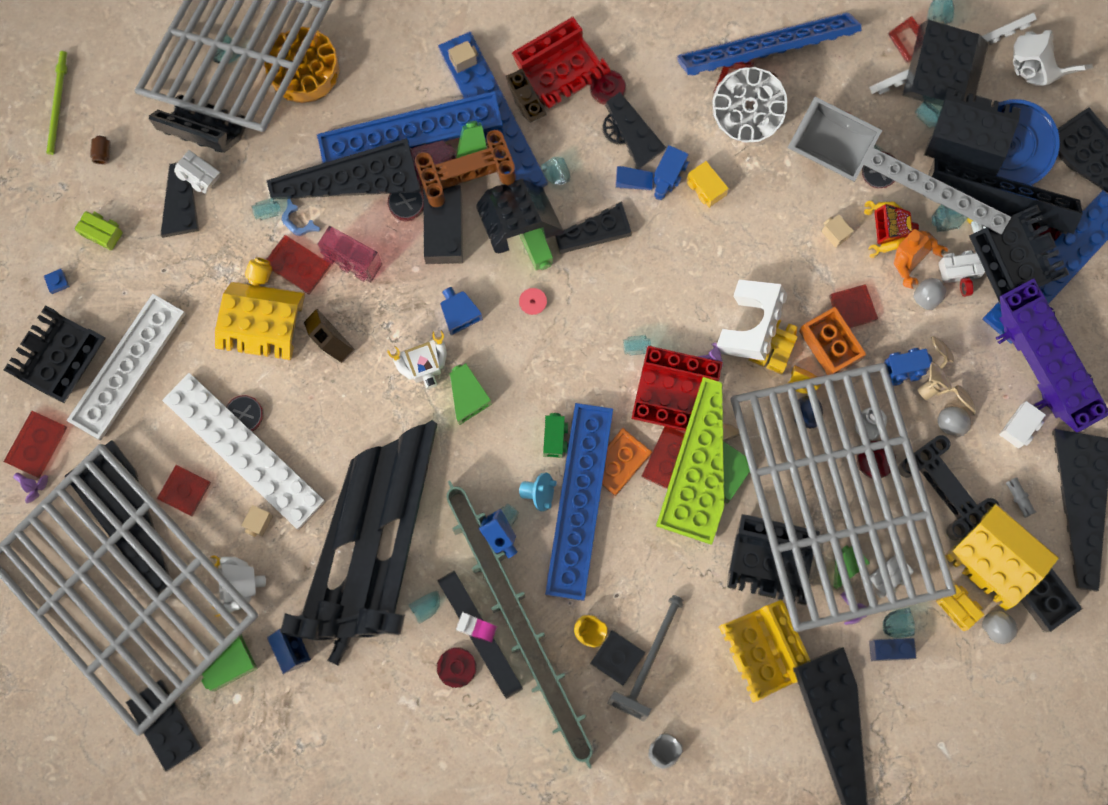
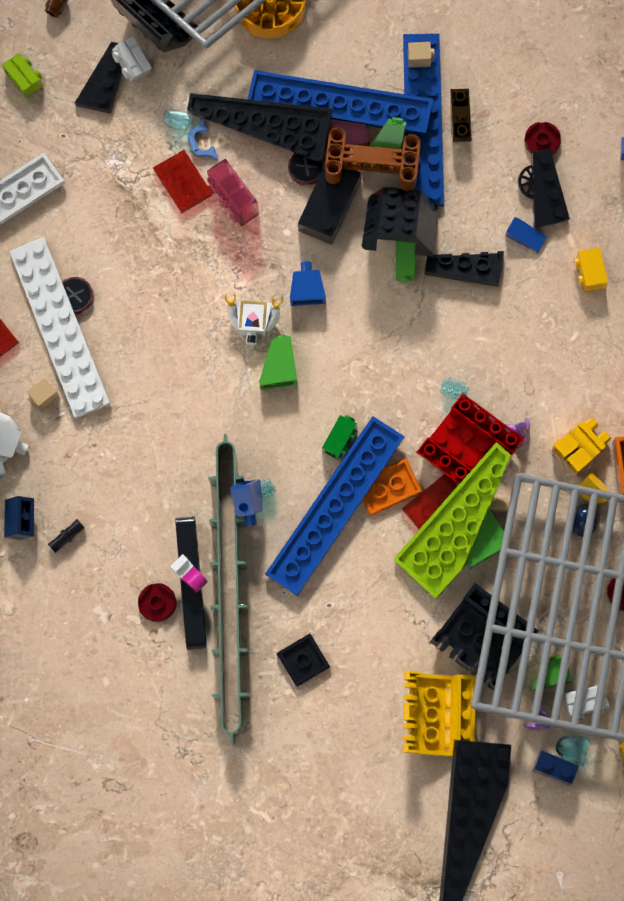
camera: 30 degrees right, 0 degrees up
(257, 319) = (125, 216): yellow slope -> none
(258, 271) = (145, 172): yellow head -> none
(327, 336) = (179, 258): dark brown slope -> none
(377, 489) = (159, 415): black panel -> none
(425, 606) = (155, 536): clear light blue brick -> none
(532, 301) = (378, 307): coral piece -> none
(539, 491) = (303, 480): medium azure piece -> none
(556, 171) = (457, 197): clear light blue brick -> none
(559, 62) = (506, 97): red slope -> none
(590, 631) = (289, 624): yellow hair -> none
(630, 703) = (294, 704): dark grey tile -> none
(665, 751) = (305, 760): light grey hair -> none
(669, 170) = (561, 242): blue hinge -> none
(757, 341) = (564, 433): white arch -> none

